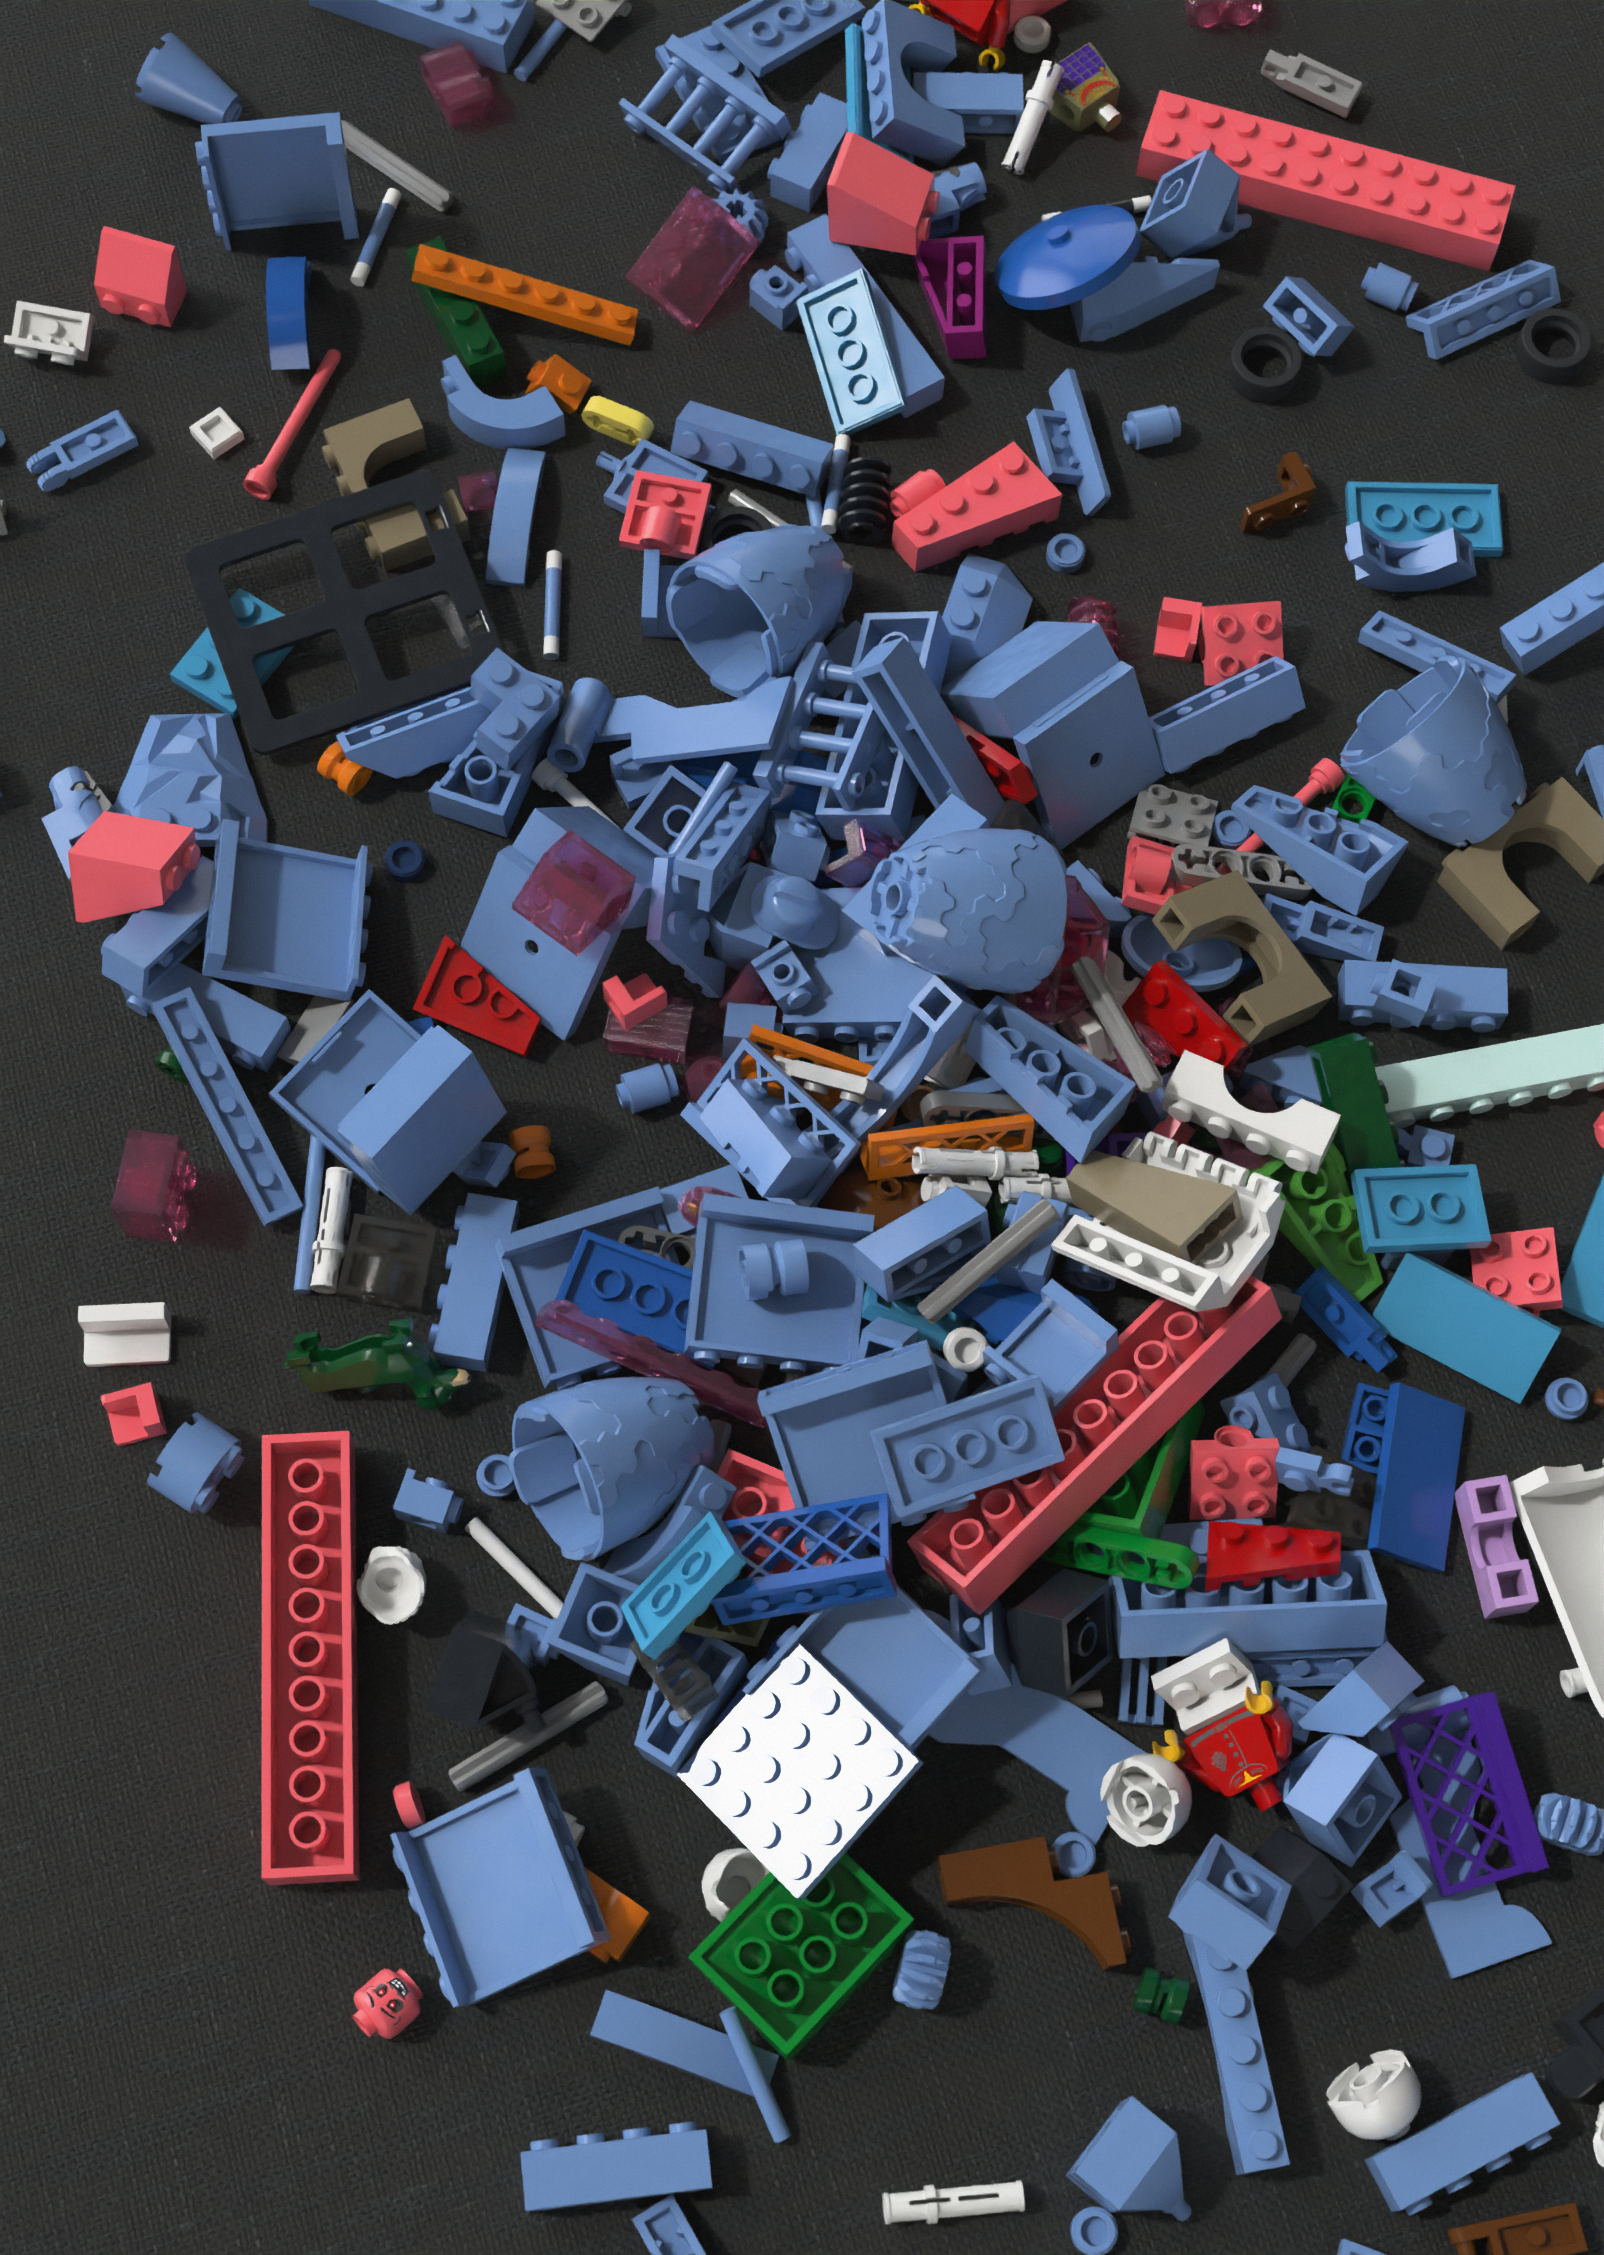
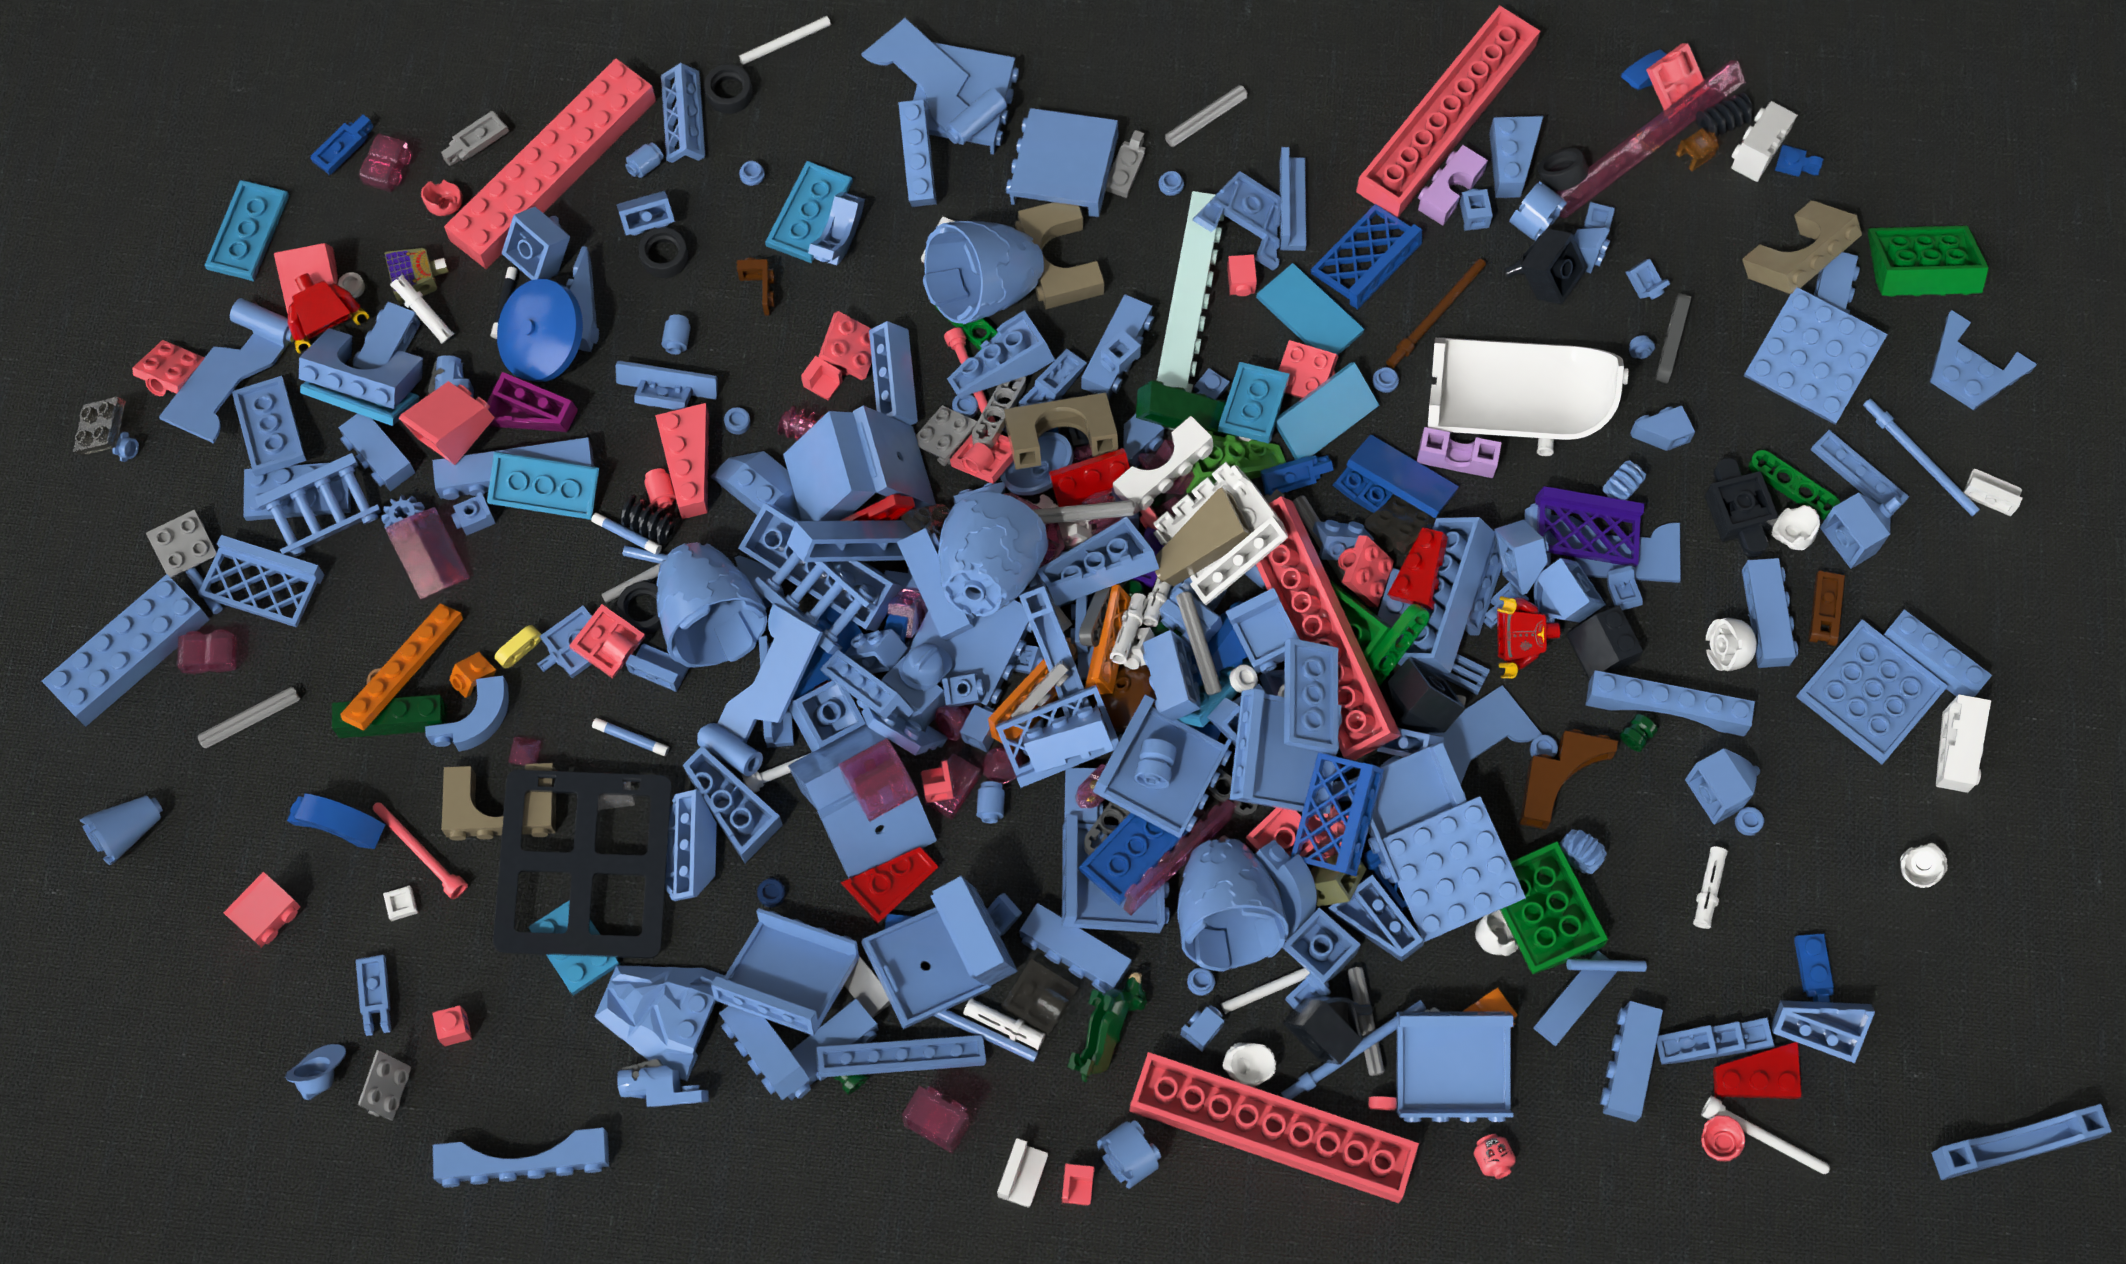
camera: 65 degrees left, 0 degrees up
(50, 331) = (271, 984): white bracket -> none
(71, 552) = (452, 1025): none -> coral brick
(129, 865) = (716, 1054): coral slope -> none
(277, 174) = (242, 781): medium blue panel -> none
(349, 775) = (692, 906): orange wheel -> none
(375, 237) = (299, 748): medium blue bar -> none
(405, 1684) = (1308, 1081): none -> medium blue bar
(514, 517) = (556, 735): medium blue slope -> none
(519, 708) = (715, 774): medium blue brick -> none
(532, 1152) = (998, 883): orange wheel -> none
(605, 107) = (263, 559): none -> medium blue fence
(683, 1585) = (1329, 886): dark azure plate -> none
(688, 1694) = (1376, 903): clear smoke slope -> none
(709, 799) = (835, 697): medium blue bar -> none
(751, 448) = (580, 572): medium blue brick -> none
(1146, 1799) = (1532, 693): white cylinder -> none
(1204, 76) = (441, 198): none -> coral hair
(1207, 1685) = (1482, 634): white bracket -> none
(1230, 1902) = (1611, 669): medium blue slope -> none
(1308, 1472) = (1385, 528): medium blue plate -> none
(1422, 650) = (904, 246): medium blue plate -> none
(1442, 425) = (751, 173): none -> medium blue plate

